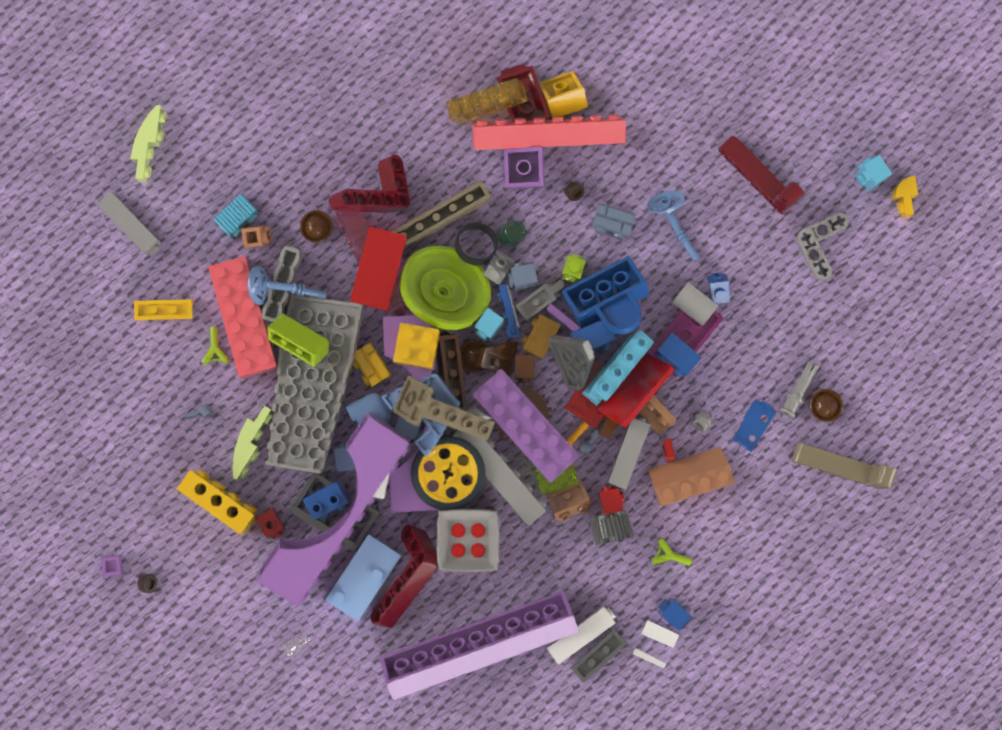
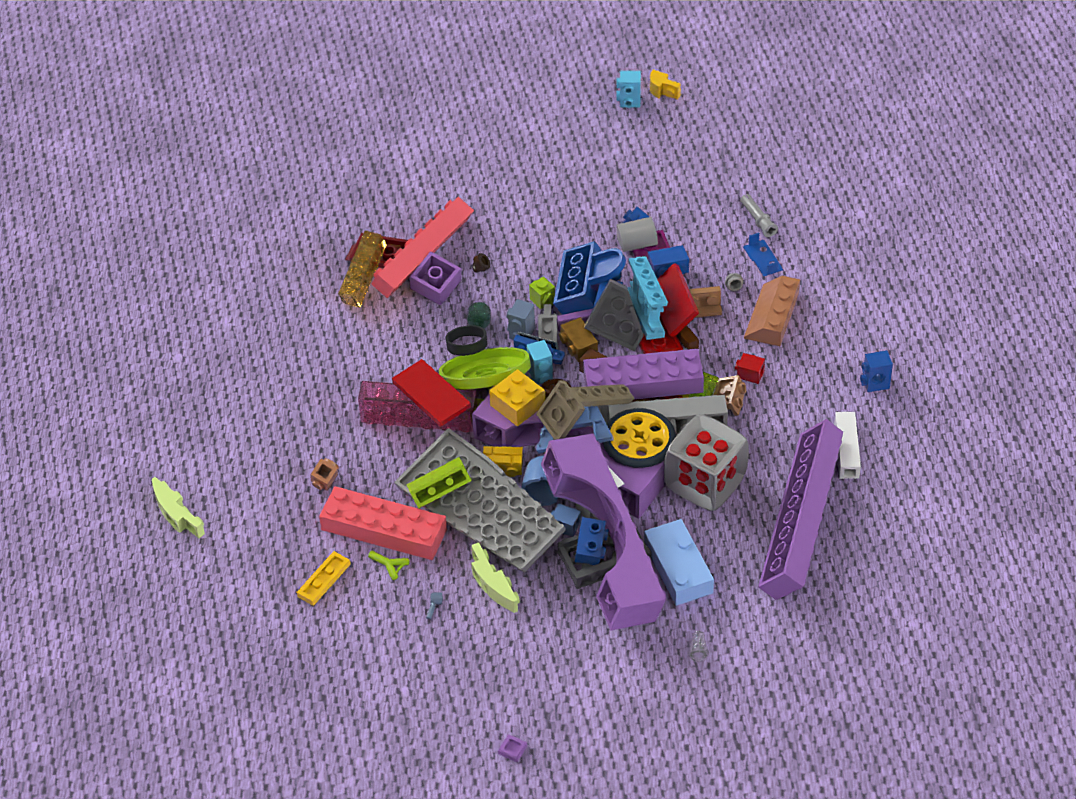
camera: 50 degrees left, 35 degrees down
(129, 224) = (228, 559): light grey brick -> none
(147, 583) = (551, 725): dark brown tile -> none
(192, 488) = (525, 629): yellow brick -> none
(236, 216) = (294, 483): medium azure brick -> none
(265, 285) = (371, 482): medium blue dish -> none
(271, 524) = (576, 603): red brick -> none
(290, 261) = (380, 478): light grey brick -> none
(316, 226) = (354, 436): reddish brown hat -> none
(390, 199) = (367, 367): dark red beam -> none
(410, 580) = (703, 503): dark red beam -> none
(444, 214) = (426, 333): dark tan brick -> none
(497, 357) = (571, 374): reddish brown wing -> none
(499, 268) = (499, 335): light grey brick -> none
(563, 94) = (403, 224): yellow slope -> none
(598, 655) = (874, 444): dark grey plate -> none
(611, 527) = (773, 374): dark grey brick -> none
(613, 221) = (527, 252): sand blue brick -> none
(629, 453) = (720, 336): light grey brick -> none
(659, 634) = (889, 398): white sticker -> none
(666, 207) = (544, 213): medium blue dish -> none
(668, 450) = (739, 311): red tile -> none
(670, 555) = (825, 359): lime piece -> none
(761, 178) = (576, 153): dark red beam -> none
(814, 238) = (649, 150): light grey beam -> none
(826, 405) = (783, 206): reddish brown hat -> none
(871, 475) = (846, 216): dark tan beam -> none

